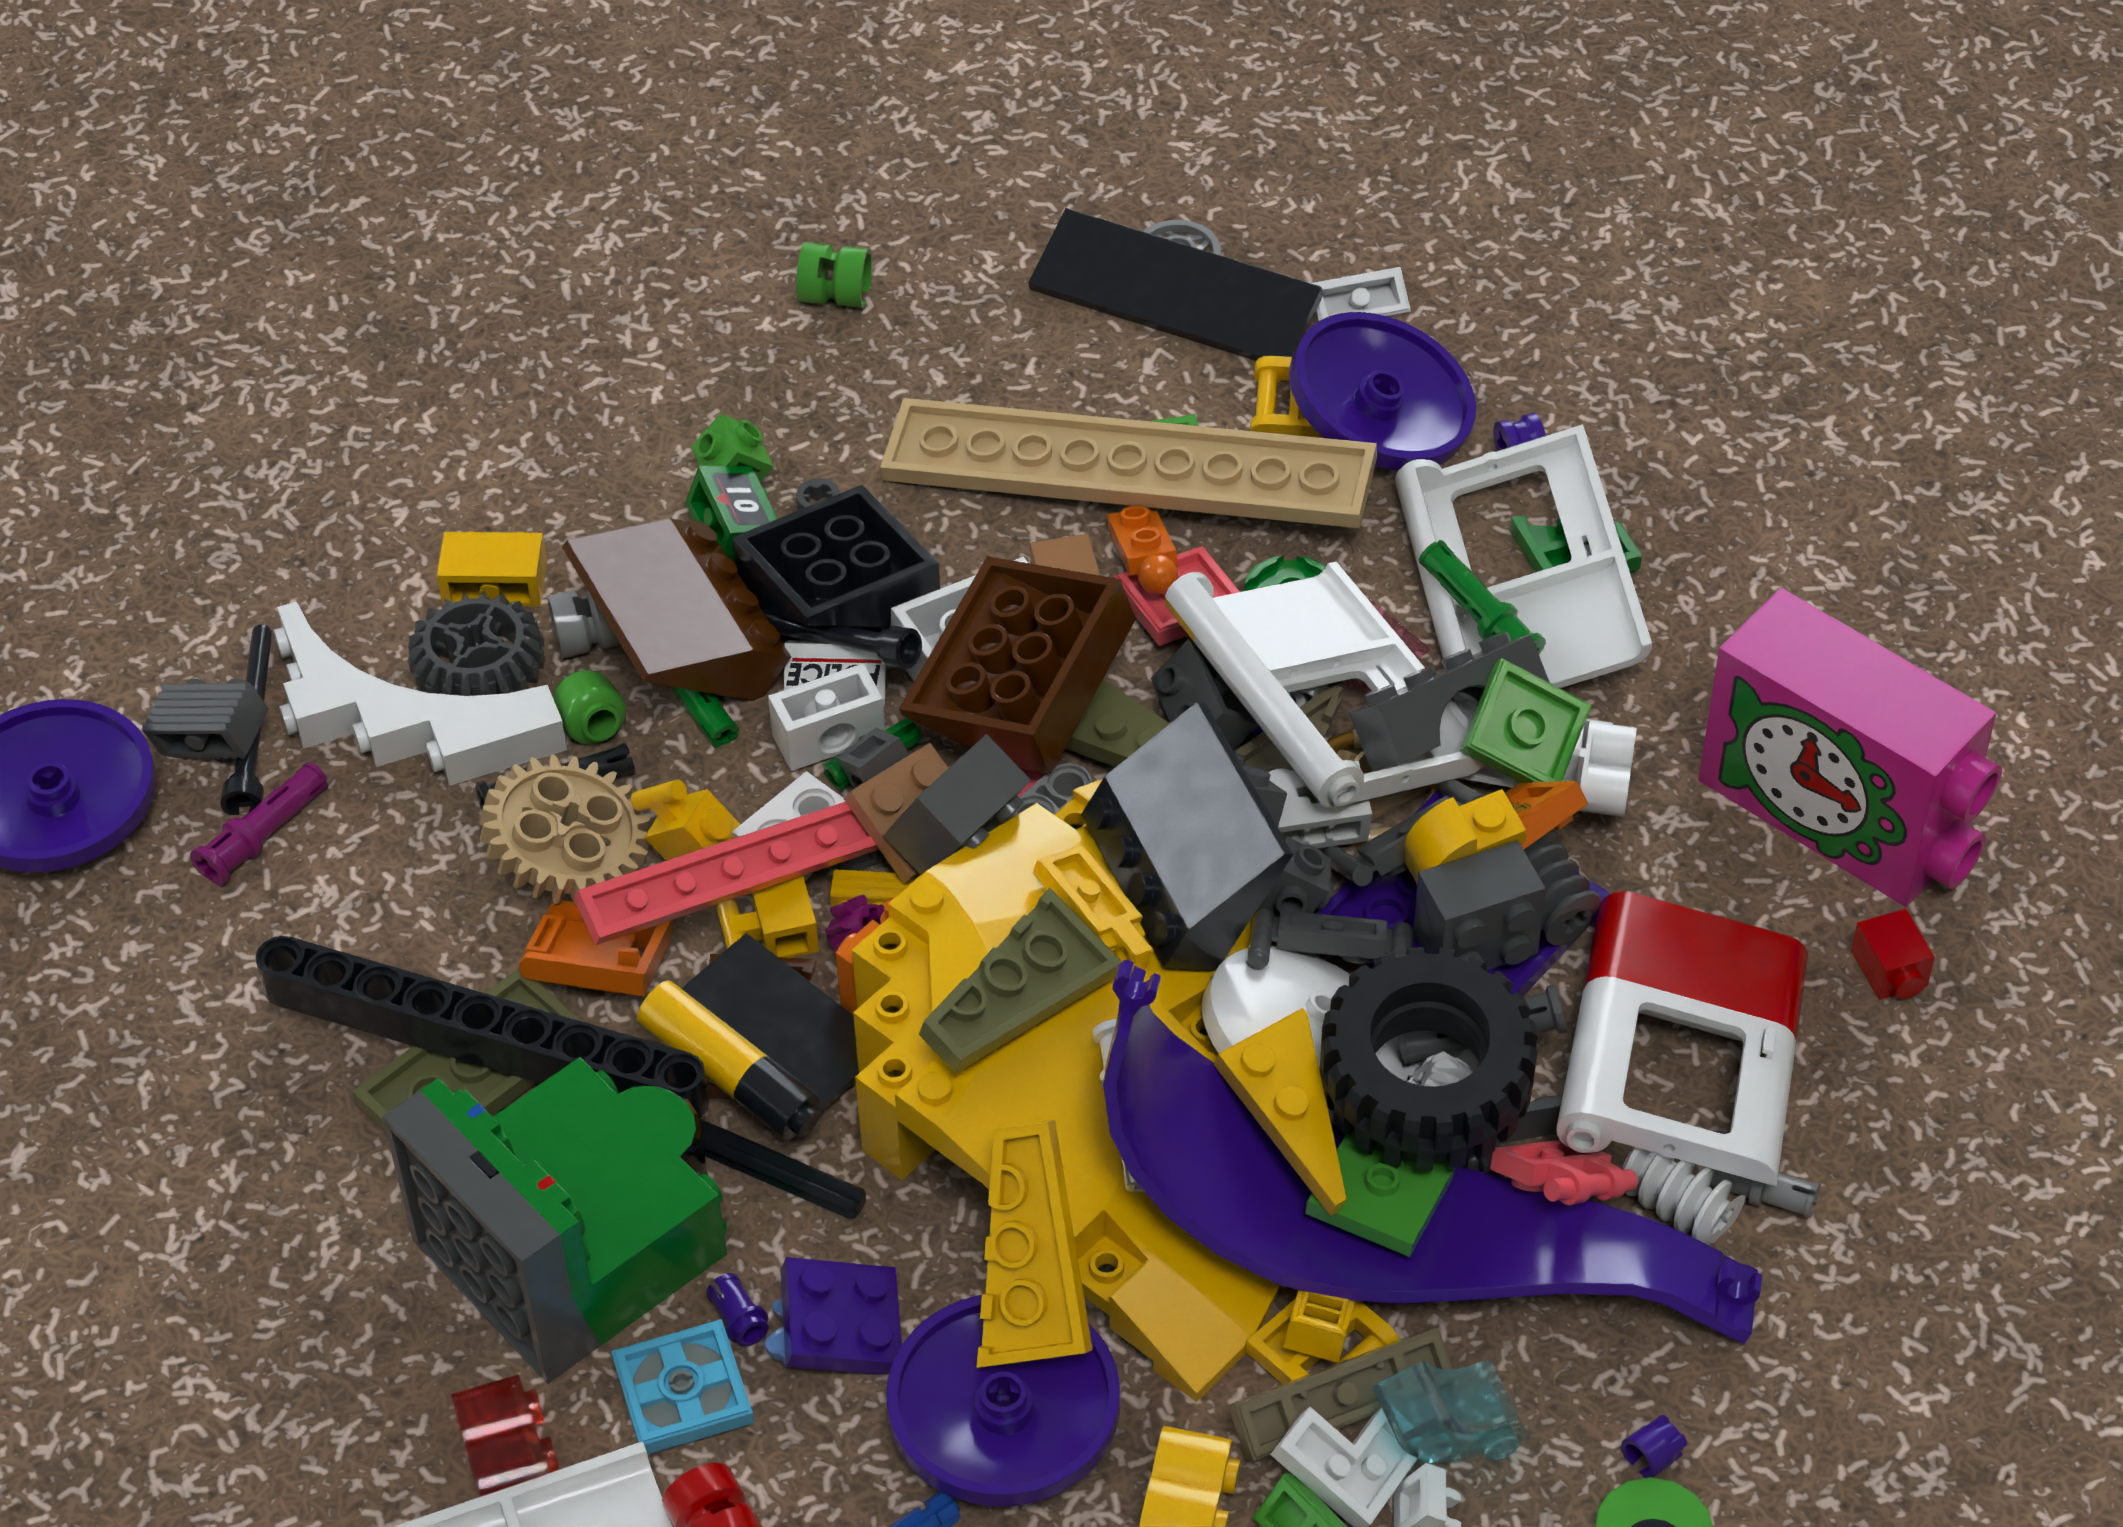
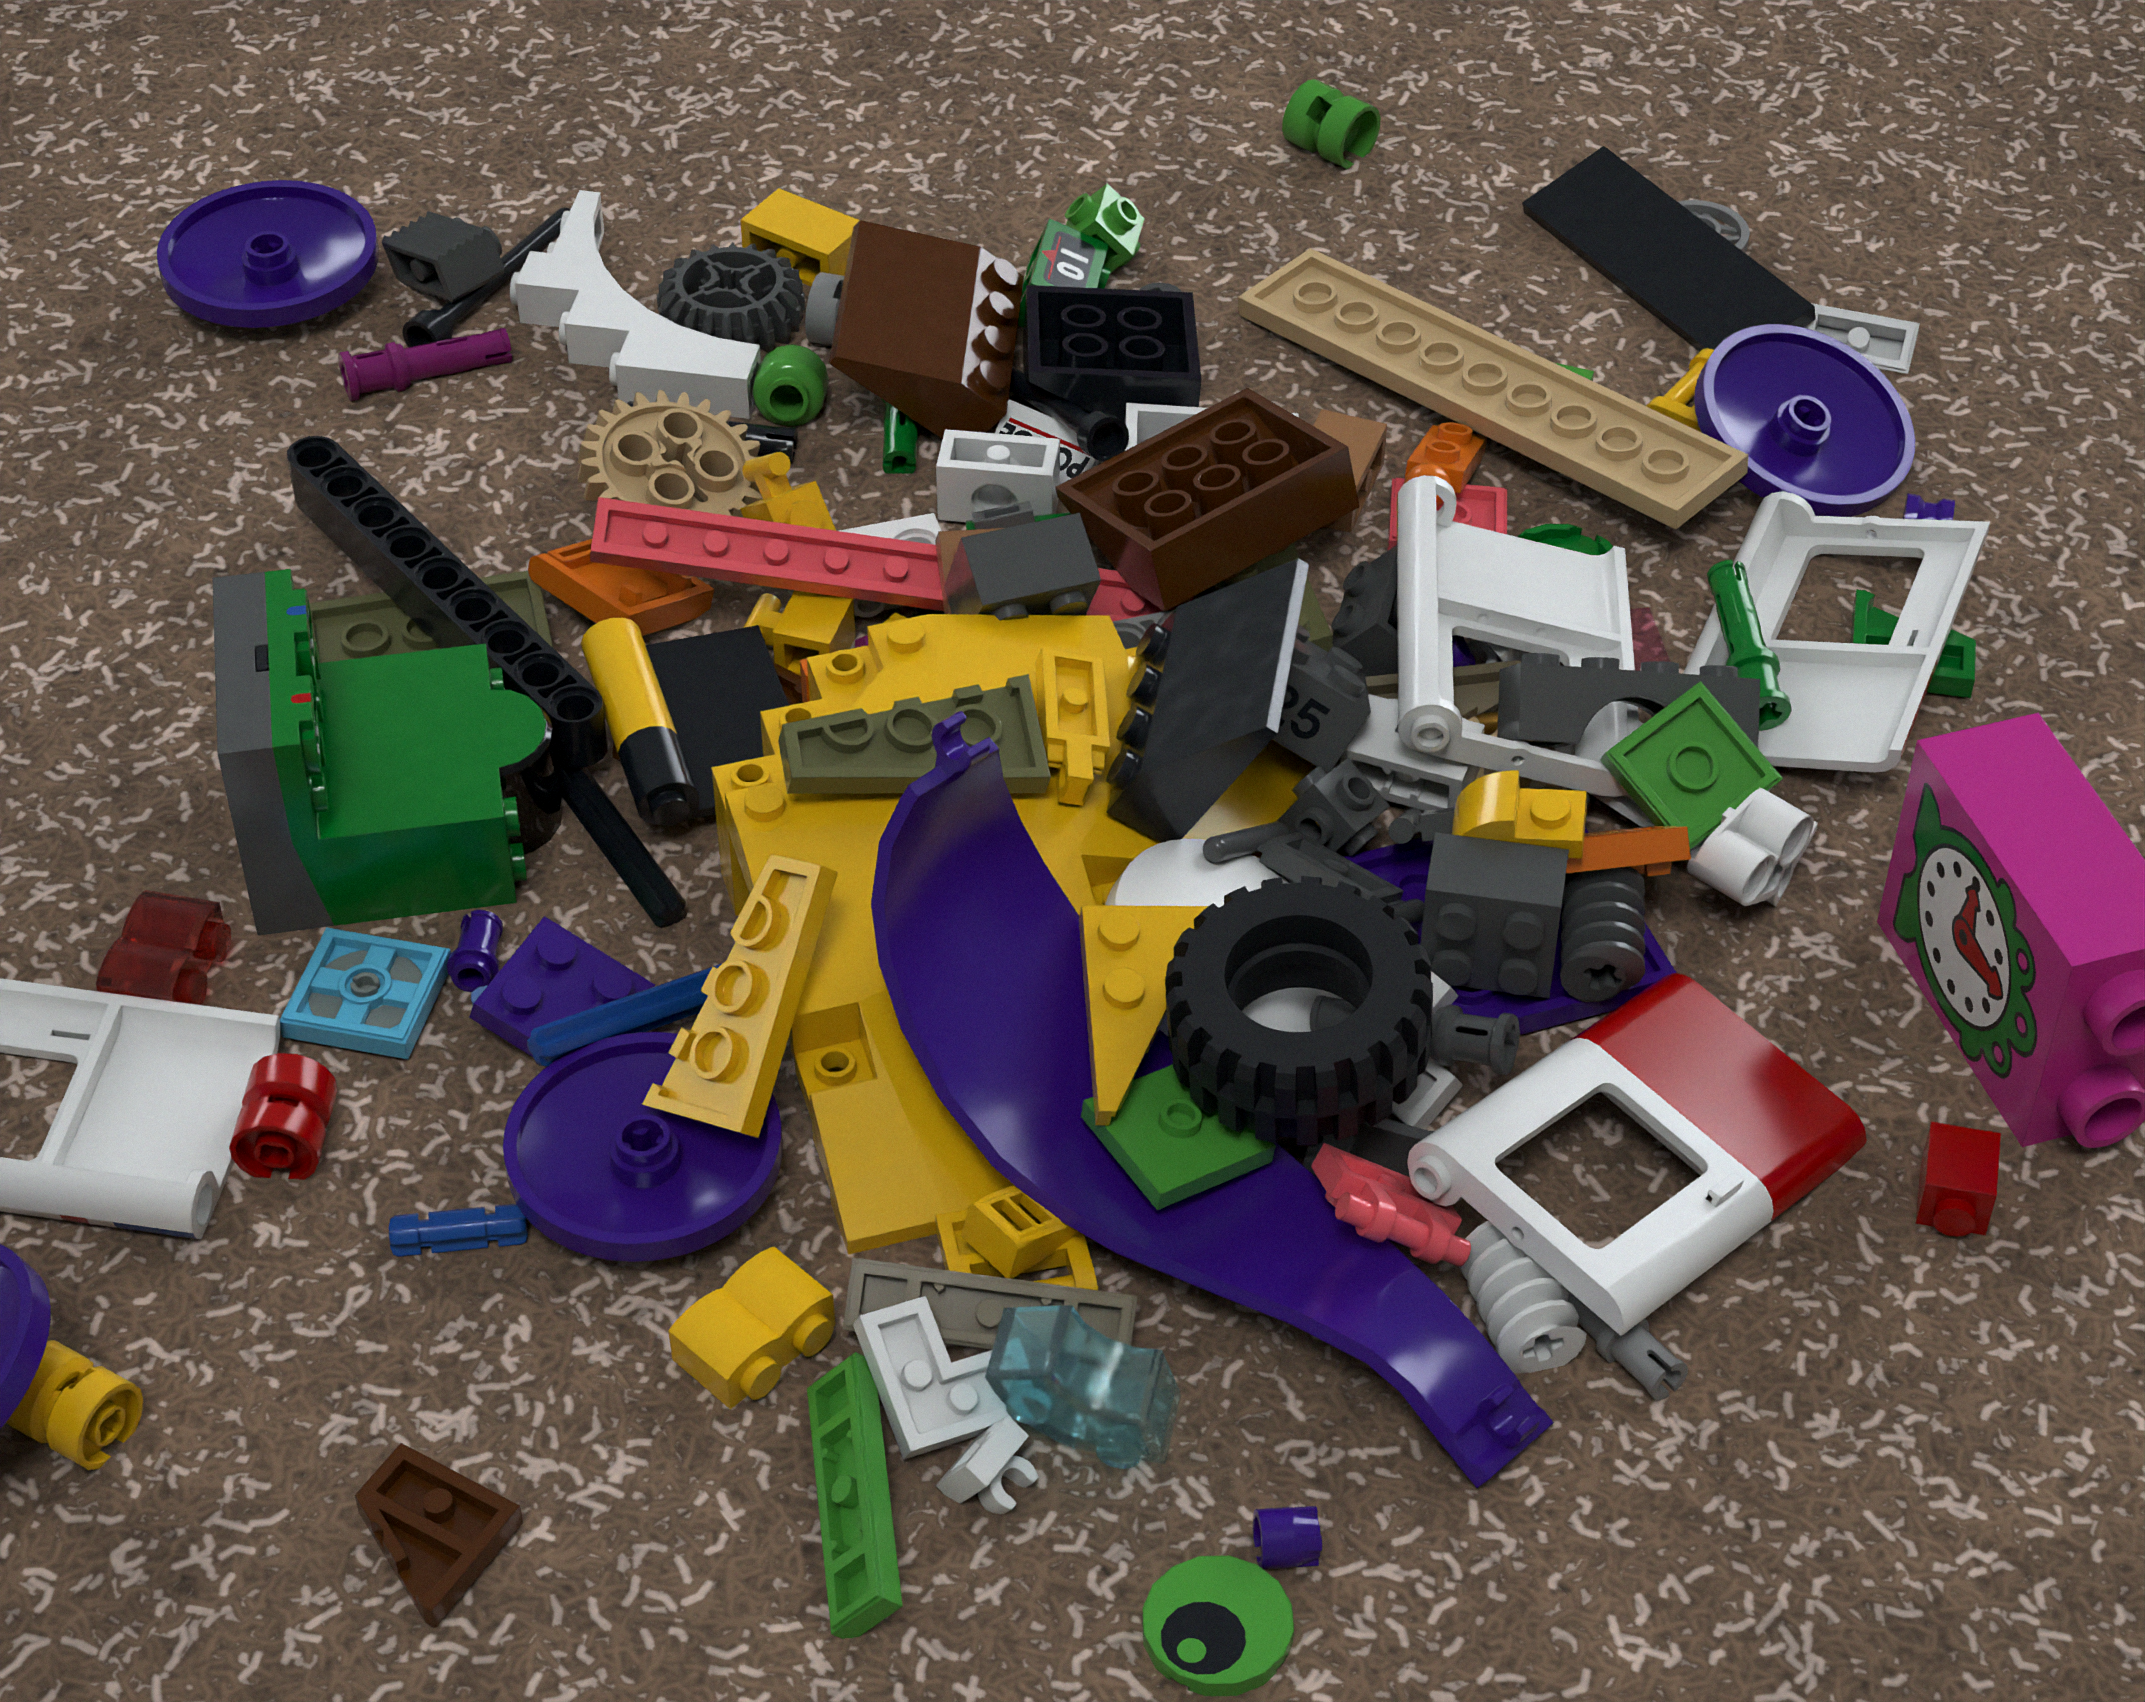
camera: 30 degrees right, 5 degrees down
(915, 1293) = (622, 1016): none -> blue axle

